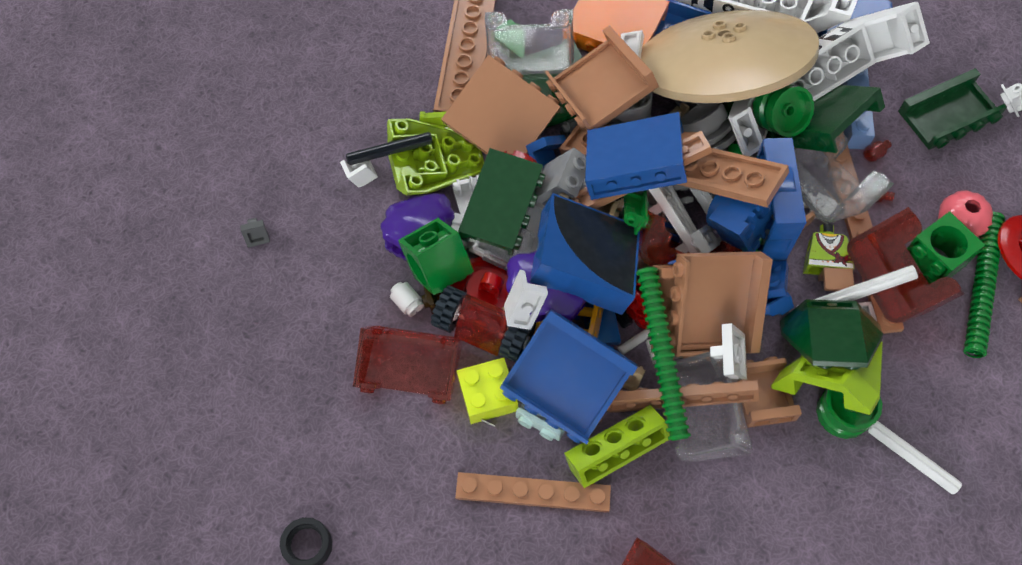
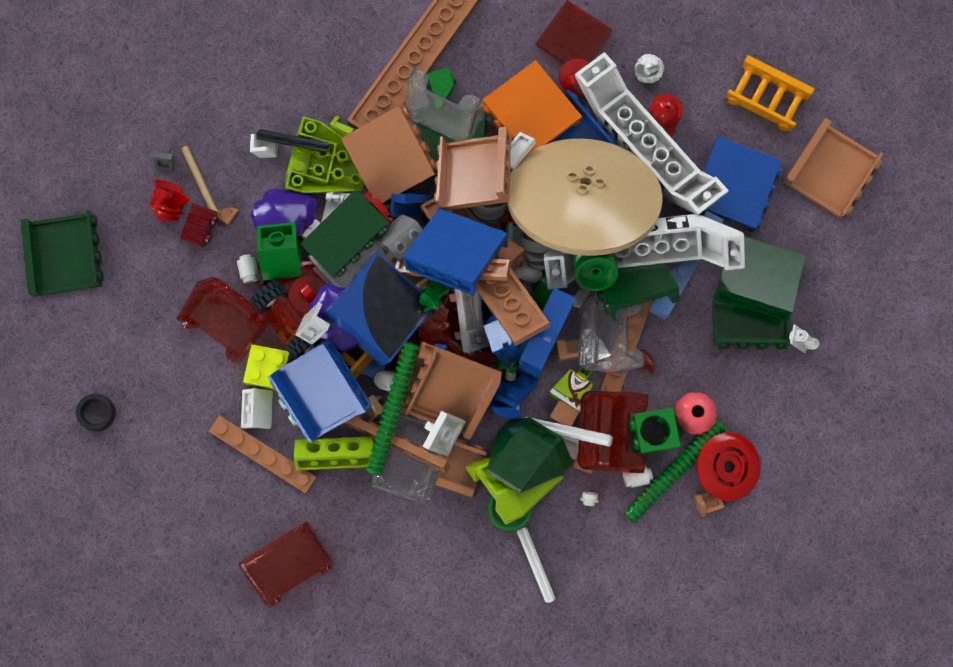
camera: 25 degrees right, 15 degrees up
(180, 384) = (61, 254): none -> dark green panel
(280, 271) = (167, 201): none -> red helmet
(303, 236) = (198, 177): none -> tan bar
(328, 277) = (199, 225): none -> dark red brick
(352, 258) = (227, 215): none -> nougat tile
(497, 443) = (256, 408): none -> white panel
(632, 334) = (384, 379): none -> white brick
(876, 150) = (669, 325): clear red cylinder -> none
(920, 355) = (589, 498): none -> white plate
(942, 67) = (767, 281): none -> dark green panel
(953, 310) = (637, 479): none -> white brick

